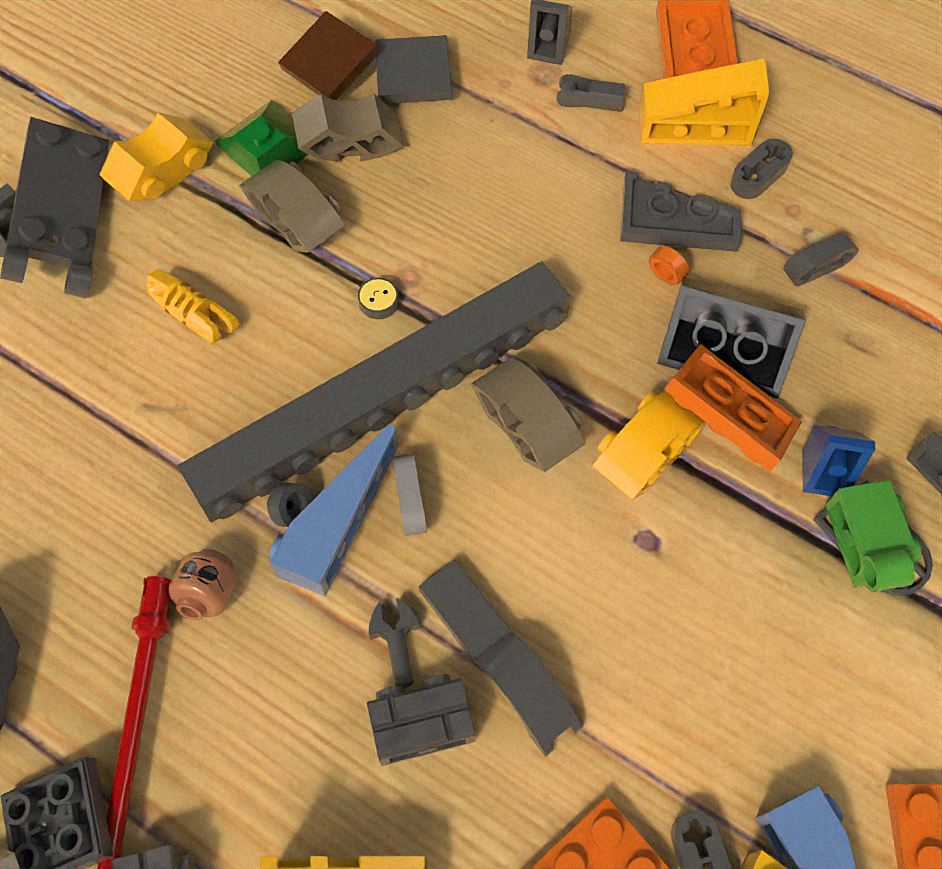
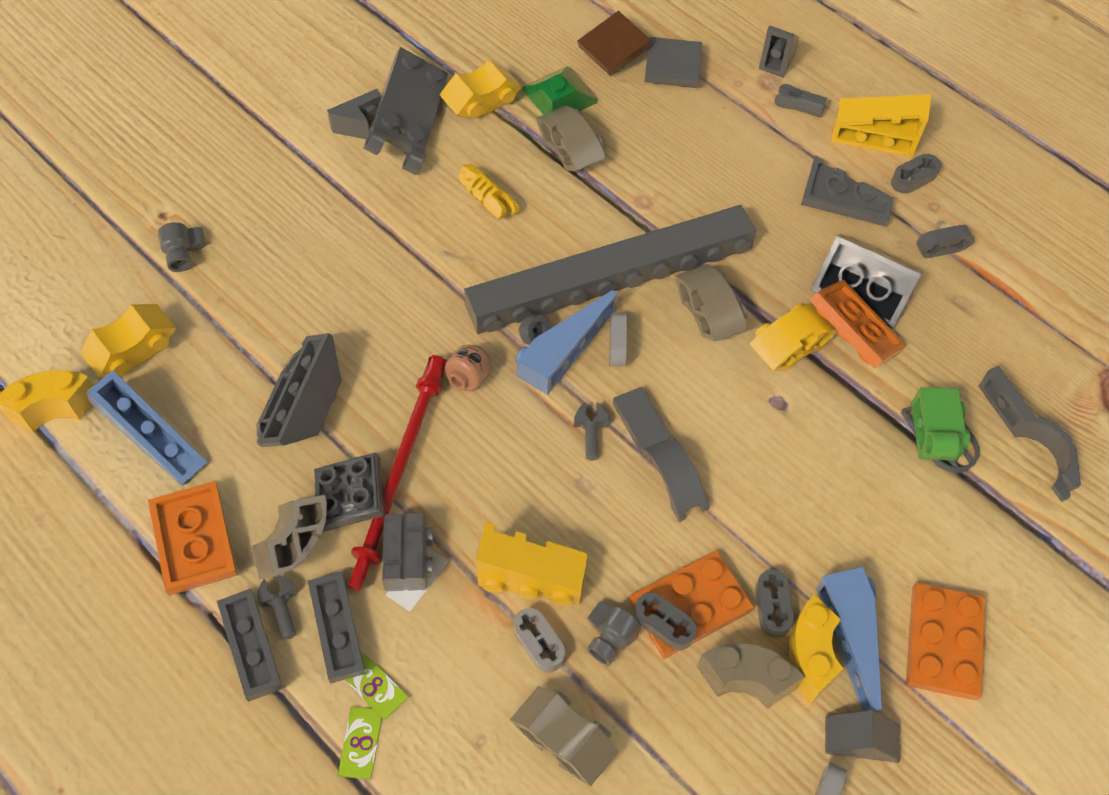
camera: 10 degrees right, 5 degrees down
(347, 128) = (618, 93): dark tan brick -> none
(378, 298) = (619, 211): light yellow tile -> none
(420, 719) = (599, 478): flat silver brick -> none
(668, 265) = (832, 225): orange tile -> none
(695, 36) = (886, 71): orange plate -> none
(834, 459) = (921, 369): blue slope -> none

